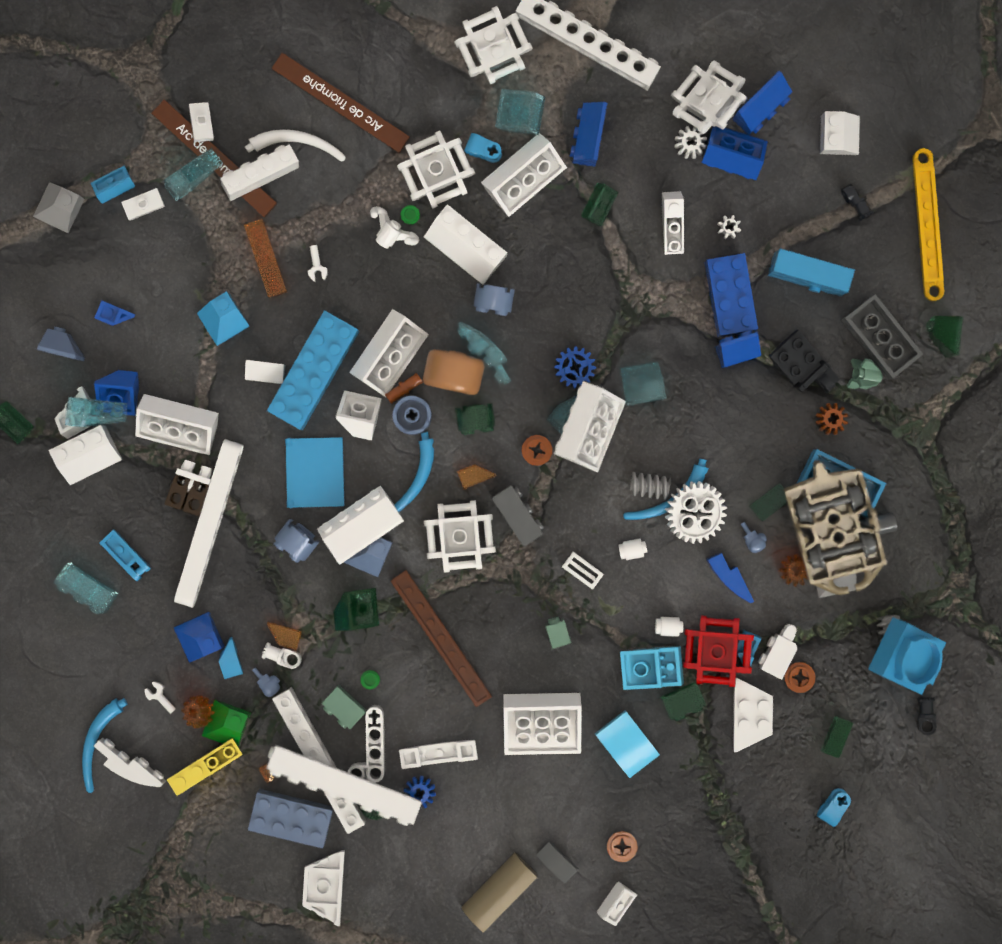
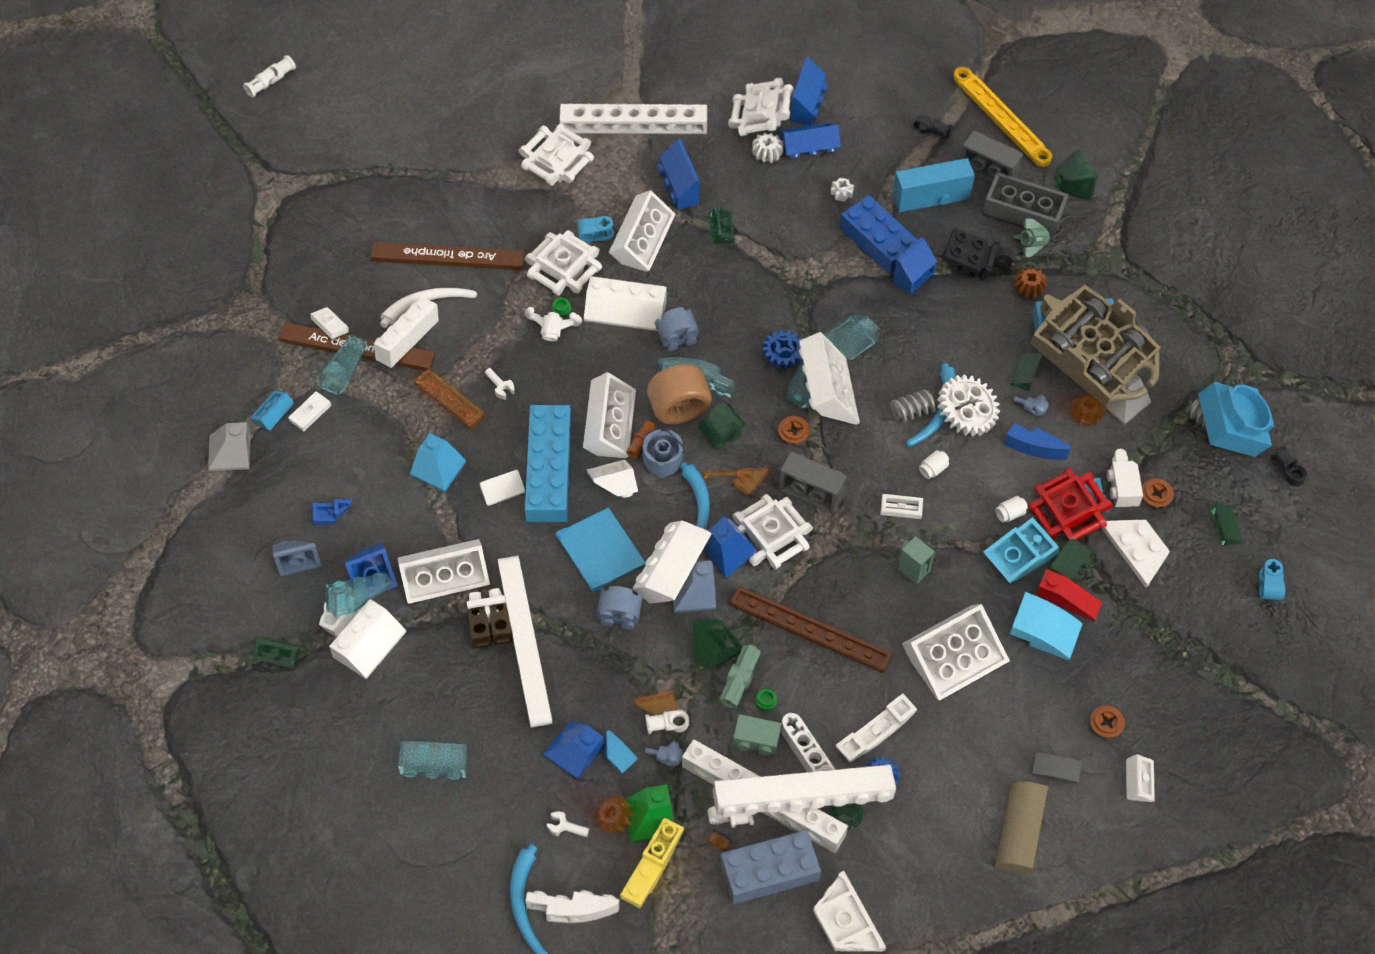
camera: 30 degrees left, 30 degrees down
(124, 554) = (456, 710): dark azure plate -> none
(360, 650) = (740, 676): none -> sand green piece
(416, 534) = (728, 546): none -> blue slope
(467, 468) = (741, 473): none -> clear orange hinge
(520, 111) = (610, 186): clear light blue brick -> none
(663, 727) = (1068, 595): none -> red slope
(673, 222) = (792, 207): white slope -> none
(839, 133) = (882, 89): white slope -> none
(881, 273) = (990, 157): none -> dark grey brick

